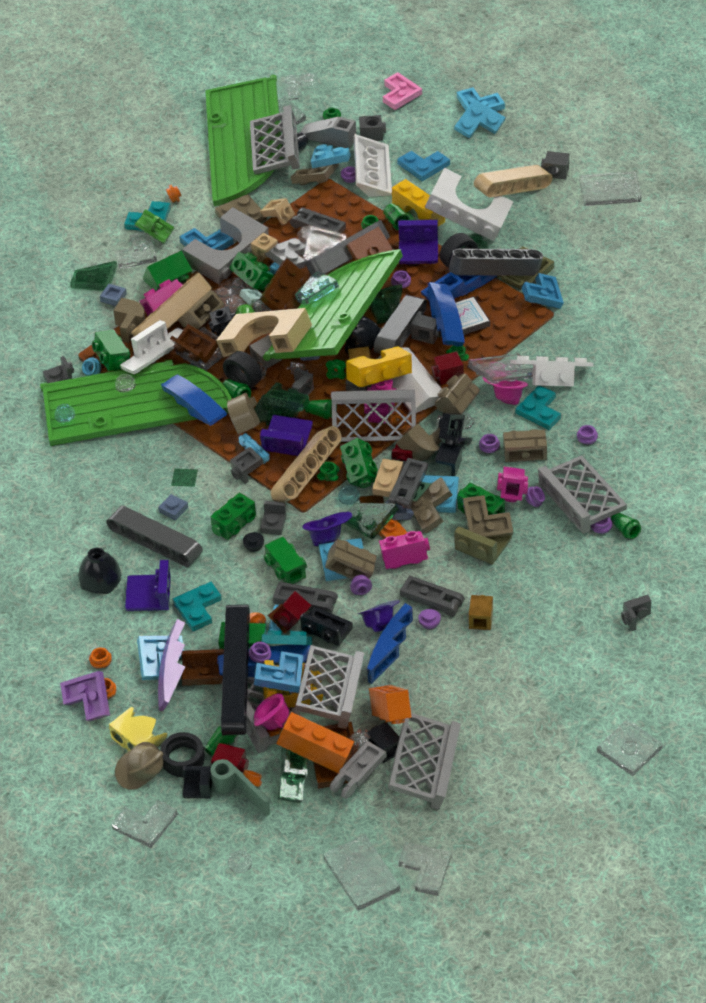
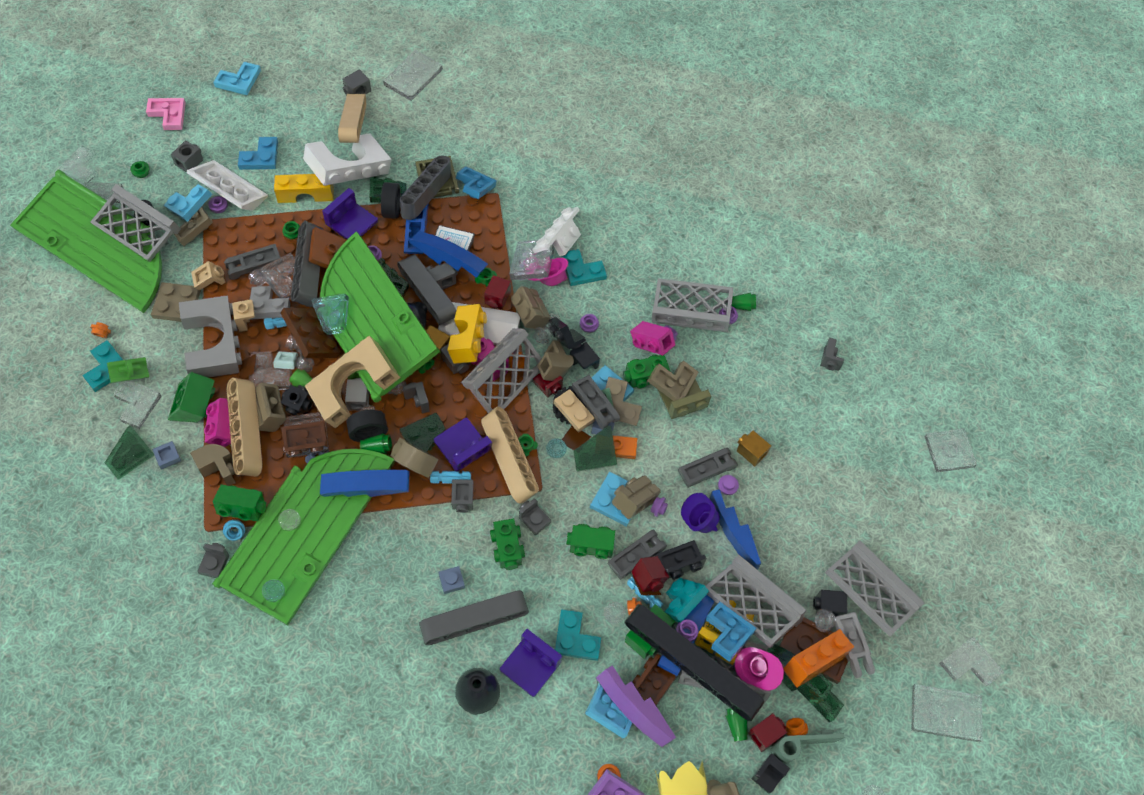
camera: 60 degrees left, 15 degrees up
(100, 658) = (576, 750): orange plate -> none
(150, 346) = (272, 470): white bracket -> none
(179, 740) = (743, 750): black tyre -> none
(184, 477) = (423, 548): clear green sticker -> none
(216, 241) = (174, 354): dark azure plate -> none
(252, 272) = (260, 341): green brick -> none
(253, 541) = (544, 547): black plate -> none
(291, 399) = (428, 417): clear green wing -> none
(320, 408) = (455, 401): green cone -> none
(326, 529) = (581, 484): dark purple piece -> none
(332, 131) = (161, 181): light grey slope -> none
(359, 463) = (543, 420): green brick -> none
(390, 703) = (815, 574): orange brick -> none
(394, 213) = (304, 208): green piece -> none
(404, 549) = (651, 452): dark pink brick -> none
(477, 115) = (253, 90): medium azure plate -> none
(525, 445) = (614, 303): dark tan brick -> none
(587, 434) = (636, 261): medium lavender plate -> none

